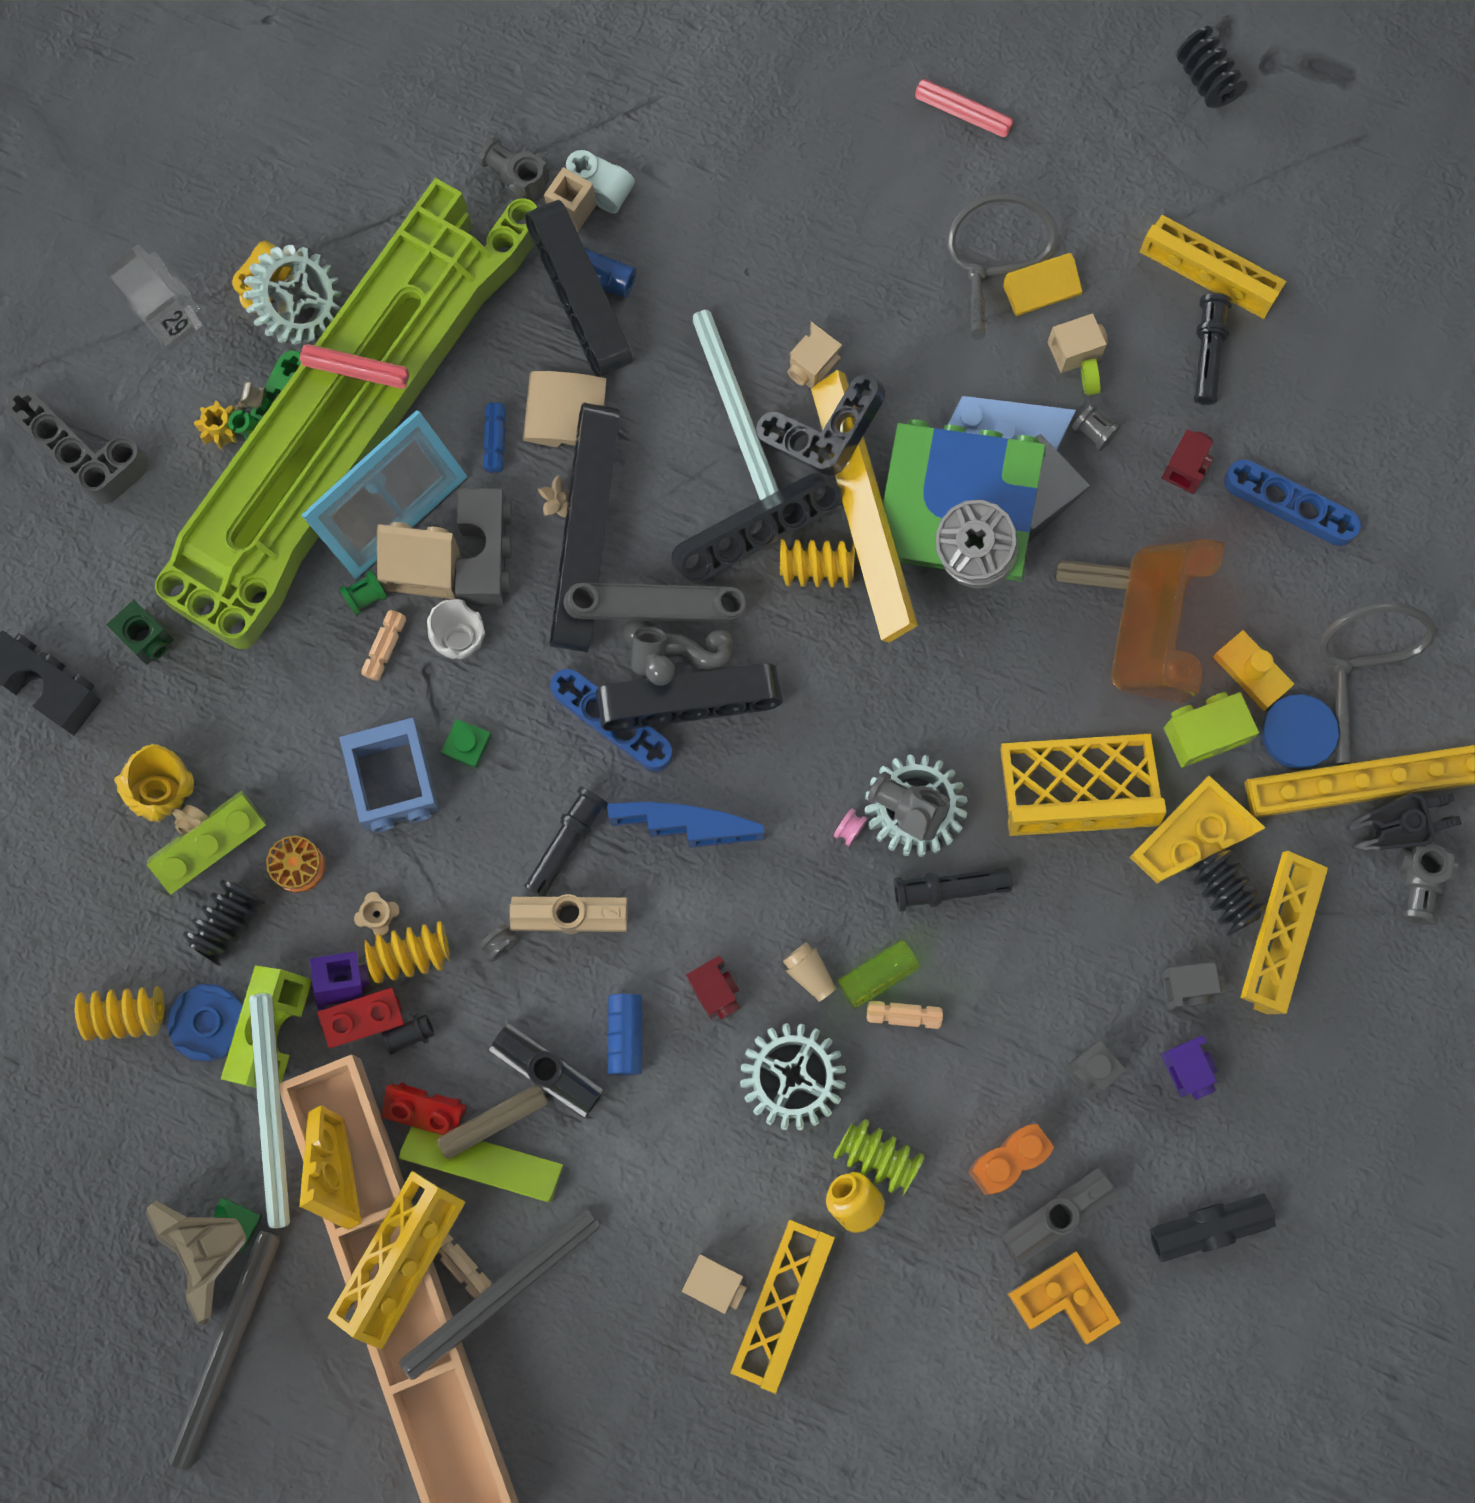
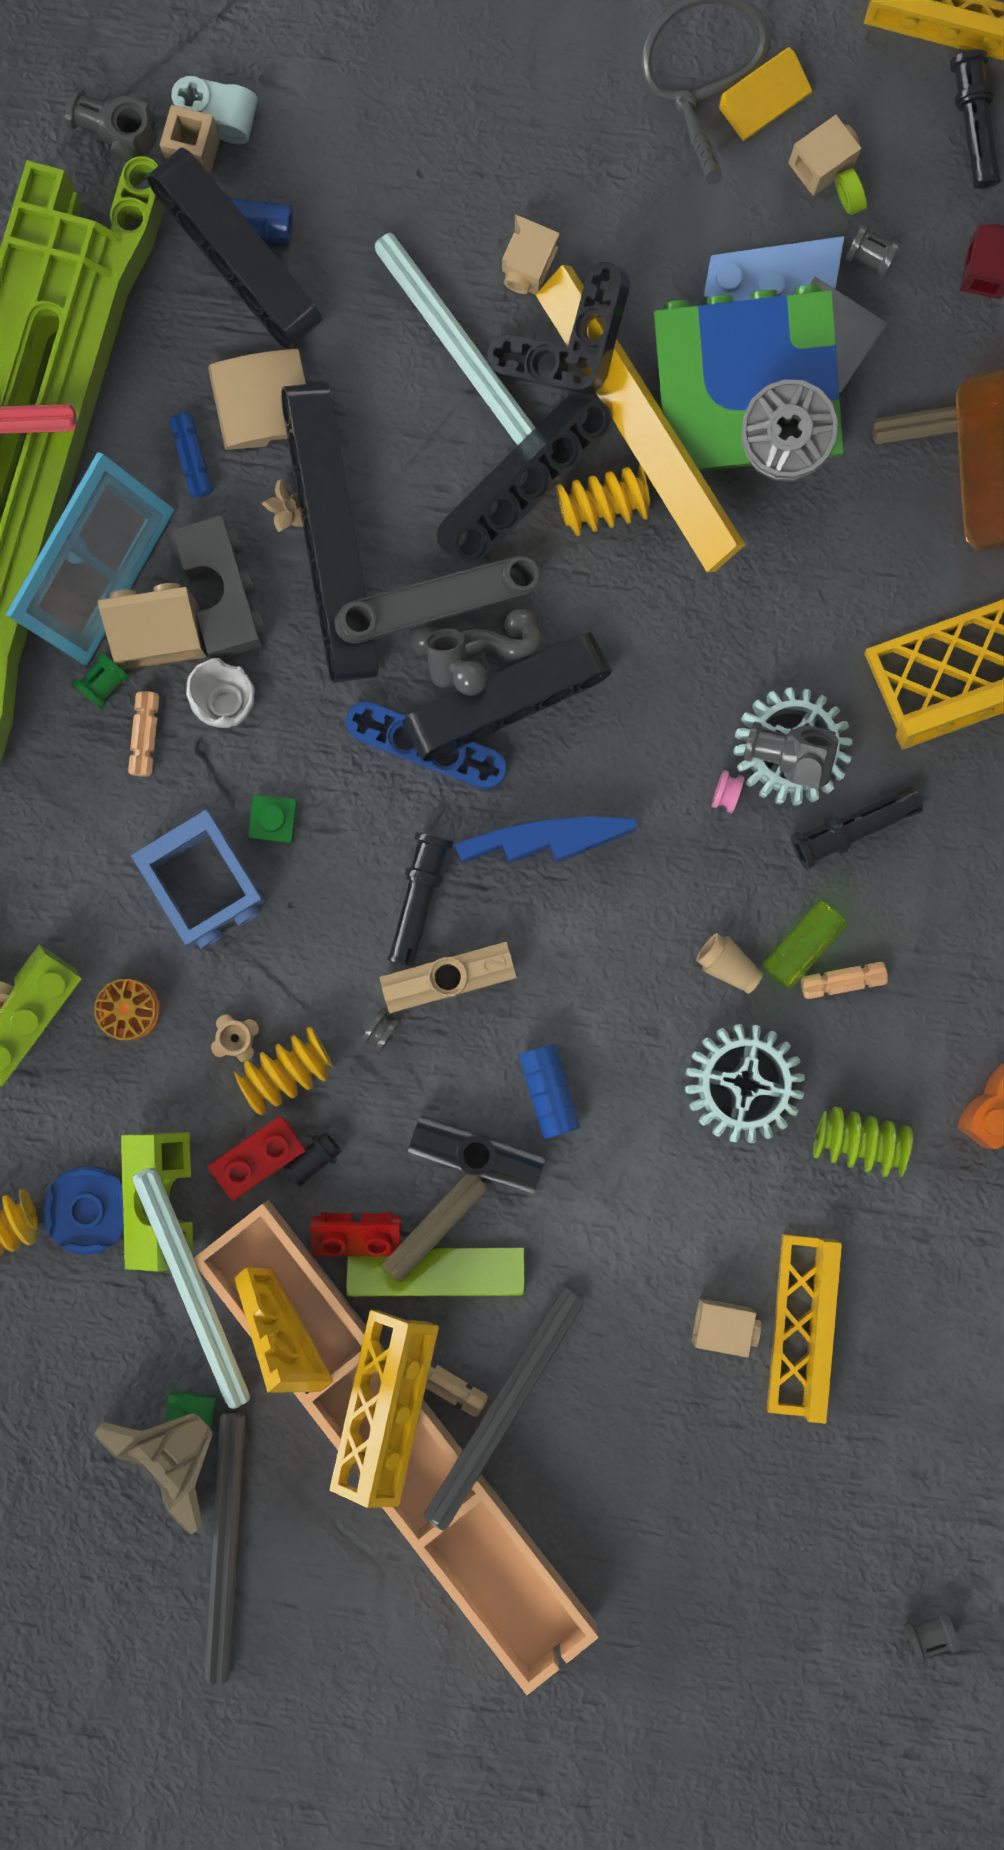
camera: 20 degrees left, 10 degrees up
(222, 921) = (67, 1097): black piece -> none
(338, 978) = (207, 1113): dark purple brick -> none
(714, 989) = (632, 1014): dark red brick -> none
(855, 1202) = (851, 1198): yellow head -> none

